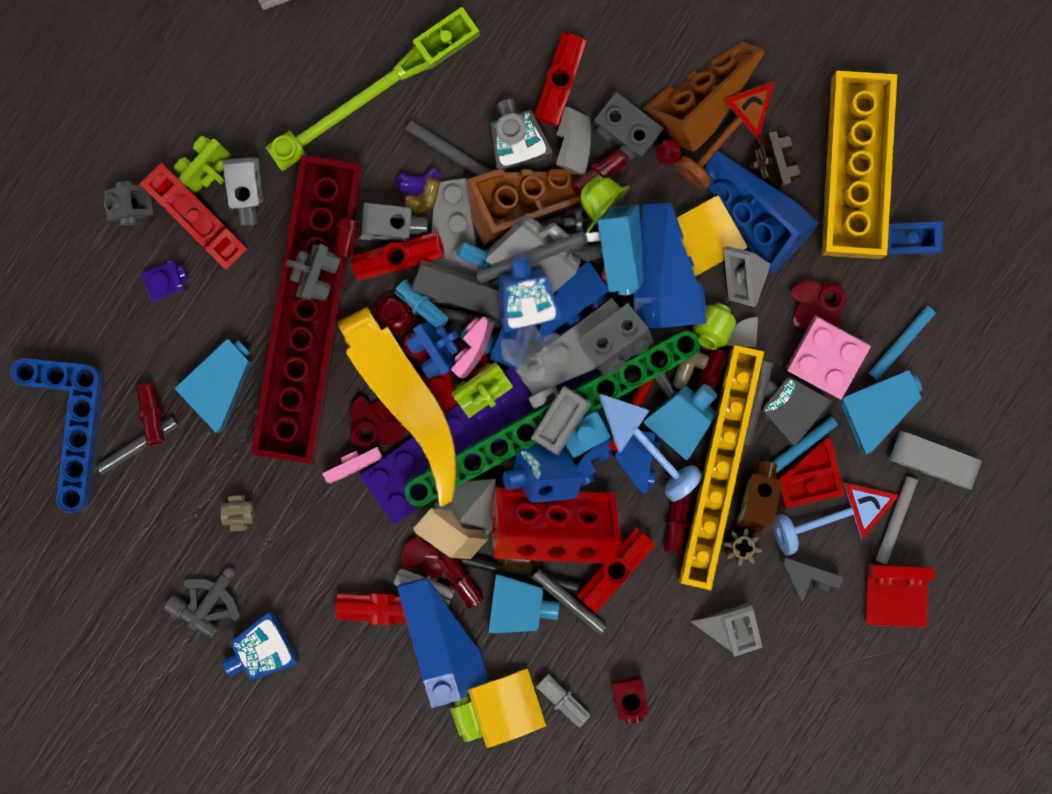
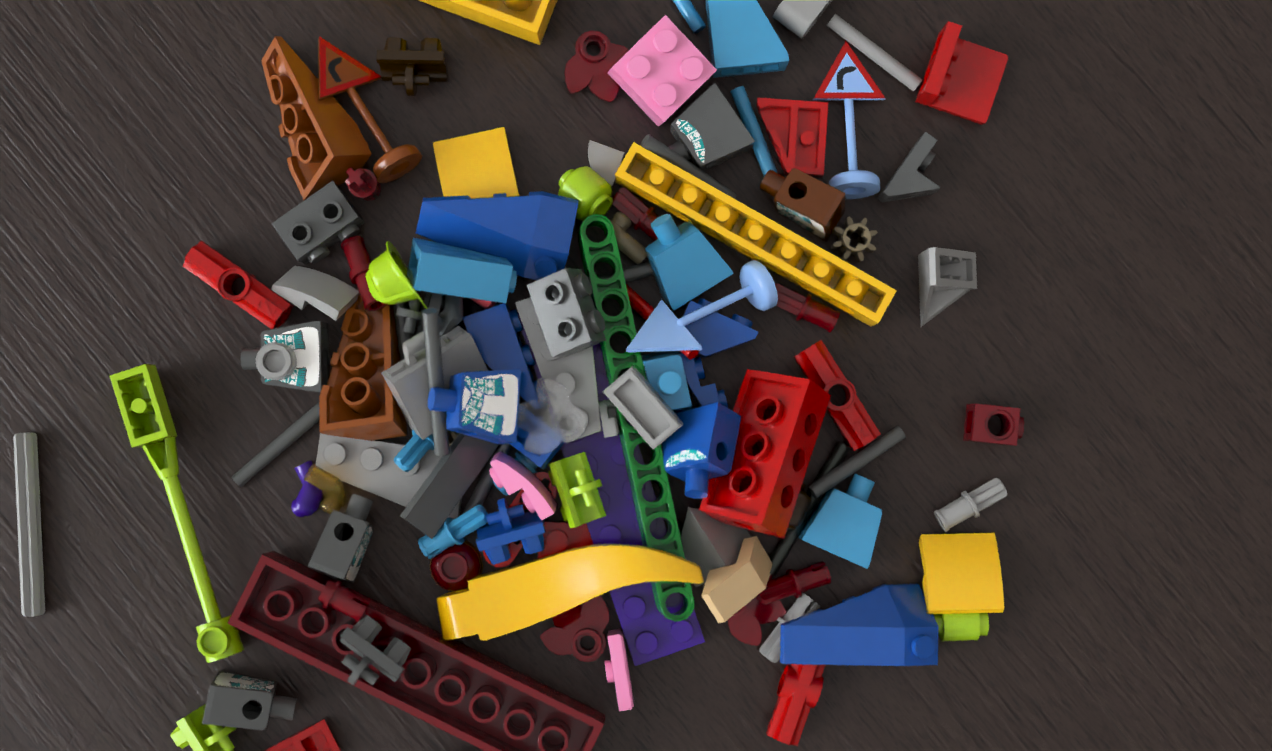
camera: 75 degrees left, 0 degrees up
(380, 262) = (386, 563): red piece -> none
(744, 275) = (536, 139): light grey slope -> none
(765, 217) = (473, 96): blue wedge -> none

